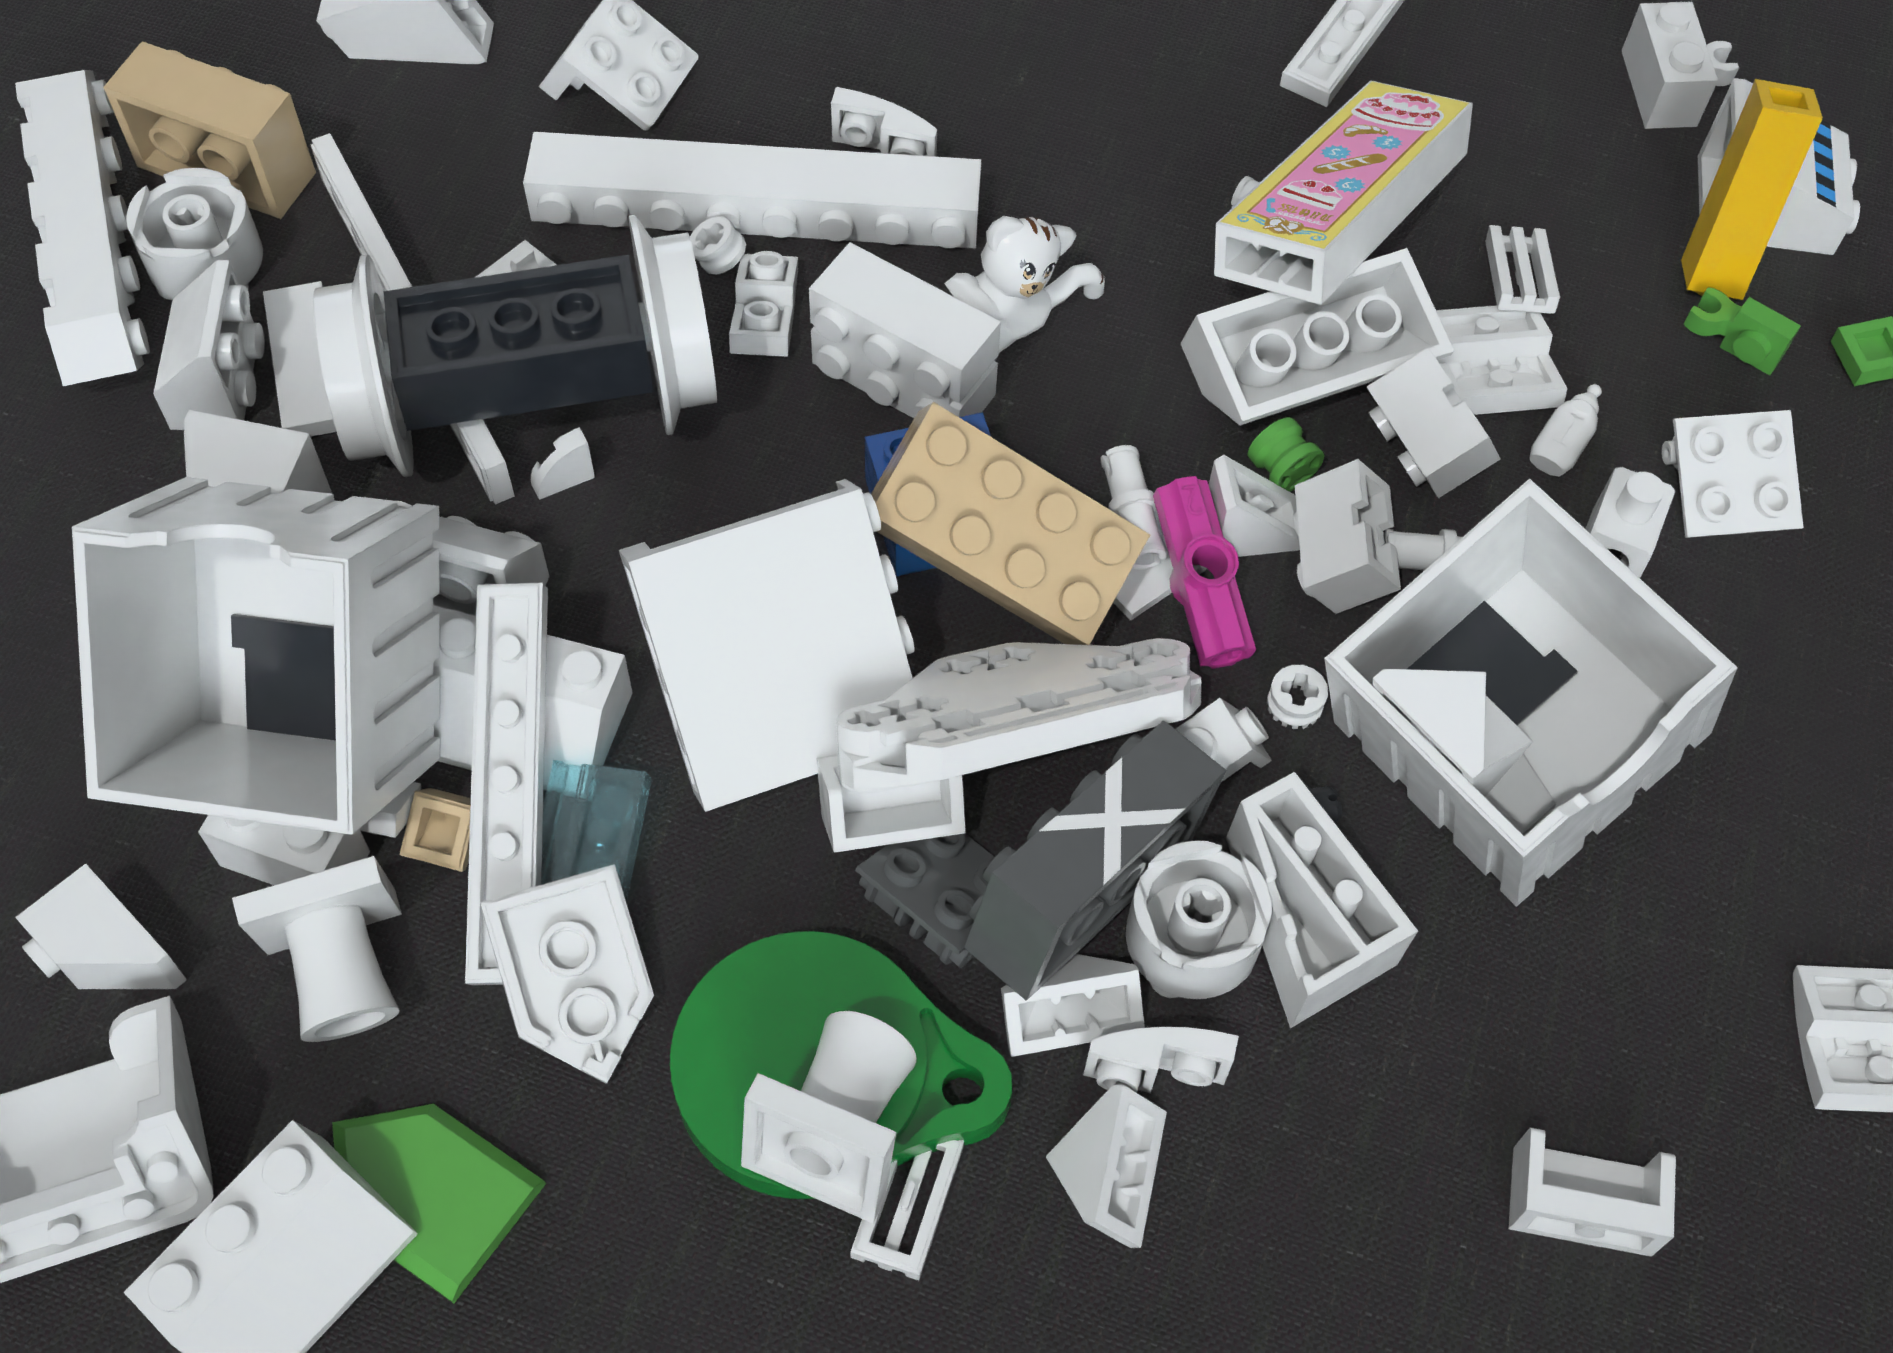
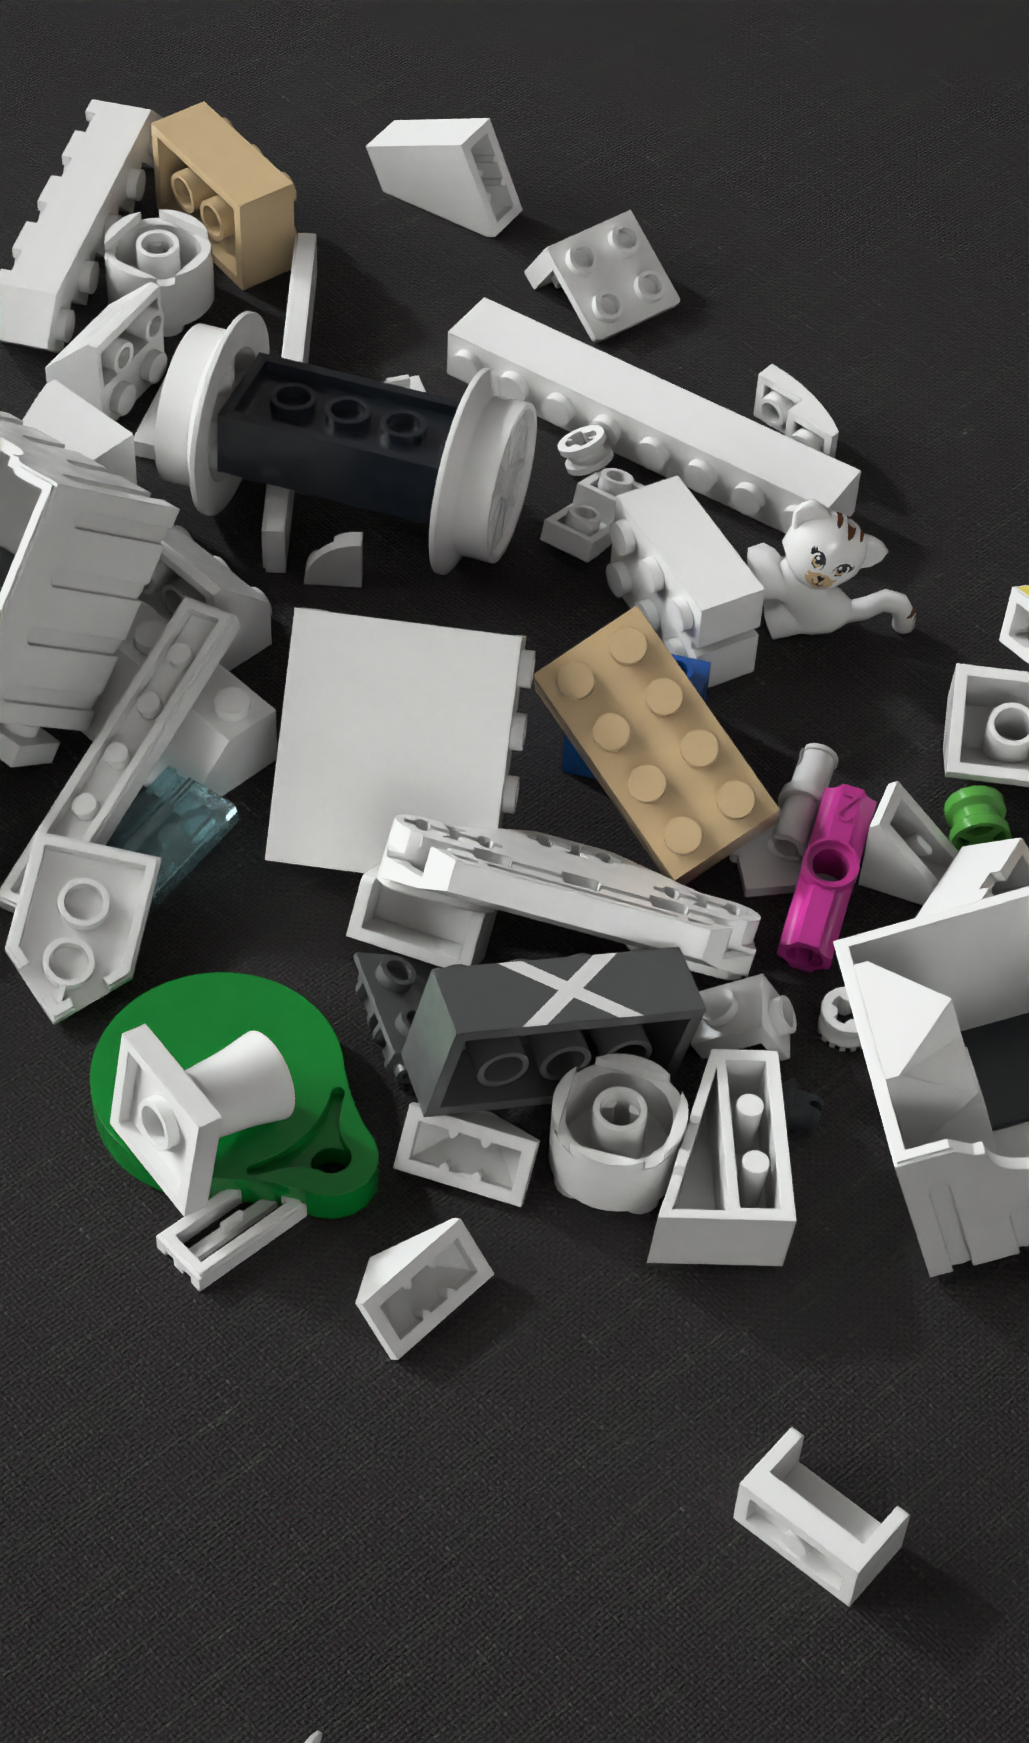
camera: 30 degrees right, 10 degrees down
(438, 829) = (45, 777): tan slope -> none
(1136, 1054) = (503, 1213): white slope -> none

